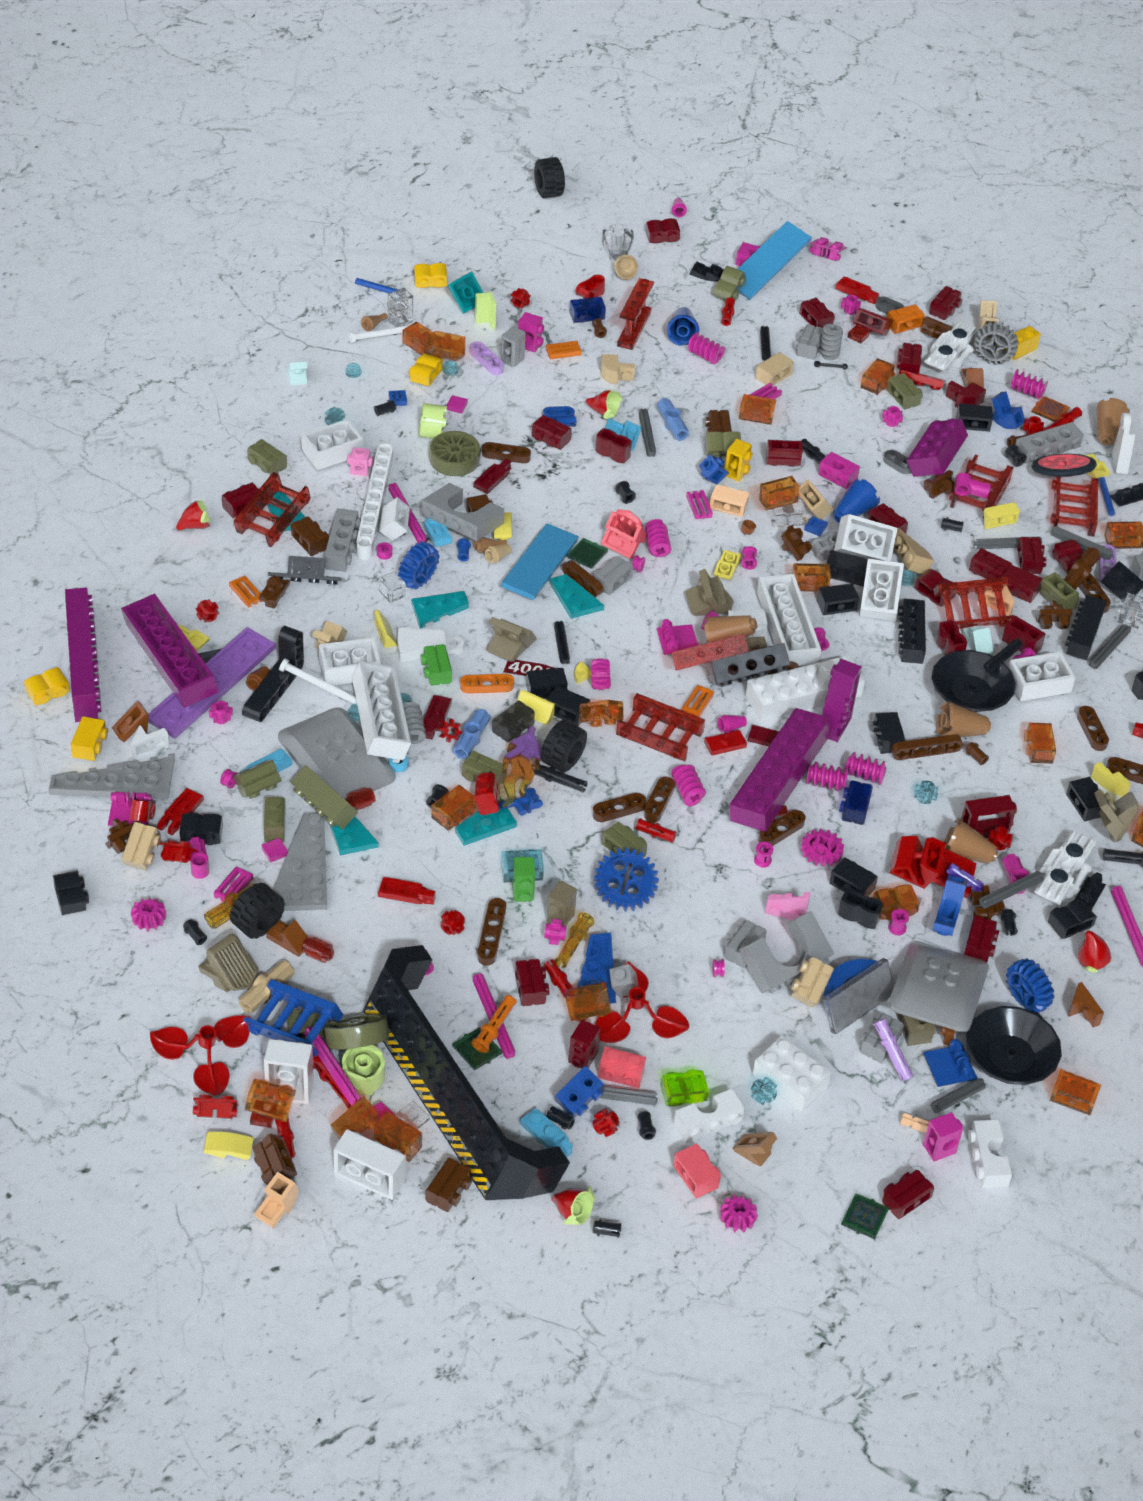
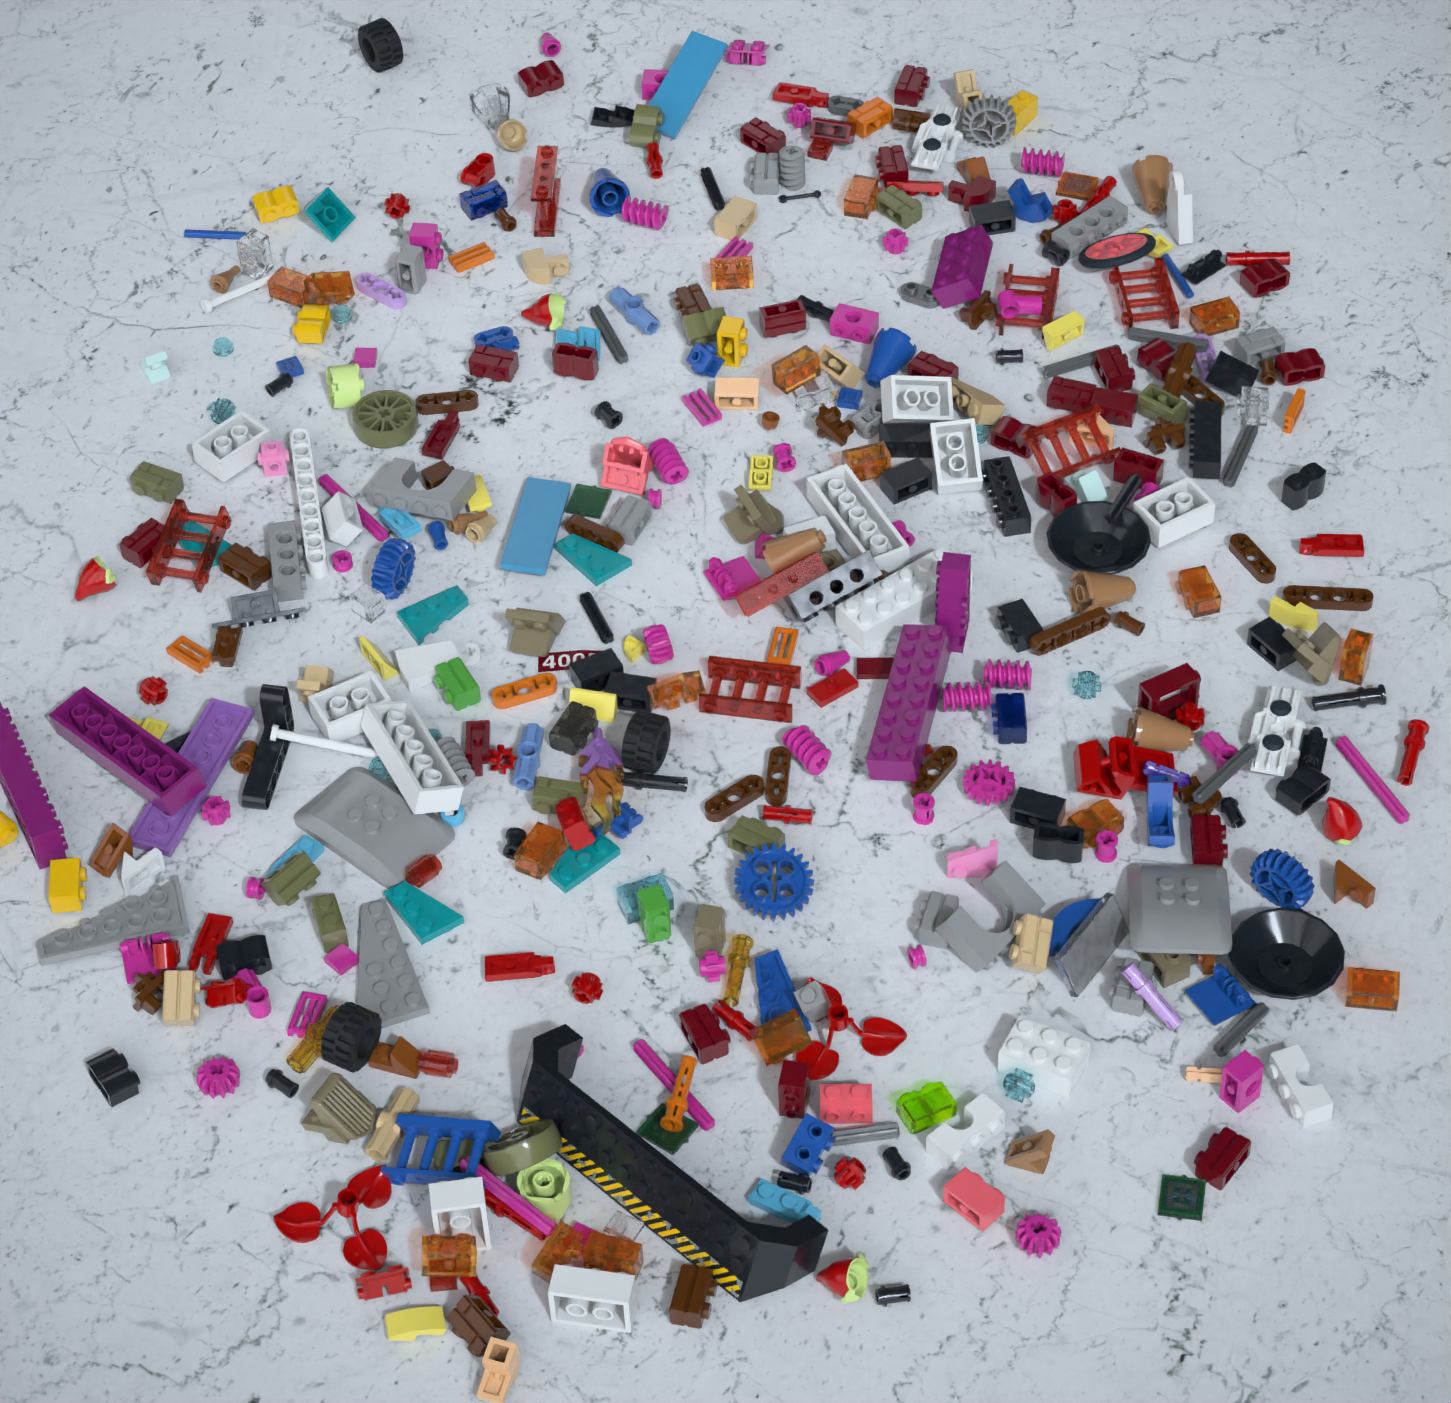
camera: 10 degrees left, 0 degrees up
(326, 799) = (381, 880): olive brick -> none
(485, 309) = (361, 230): yellowish green panel -> none
(492, 931) = (634, 986): reddish brown beam -> none

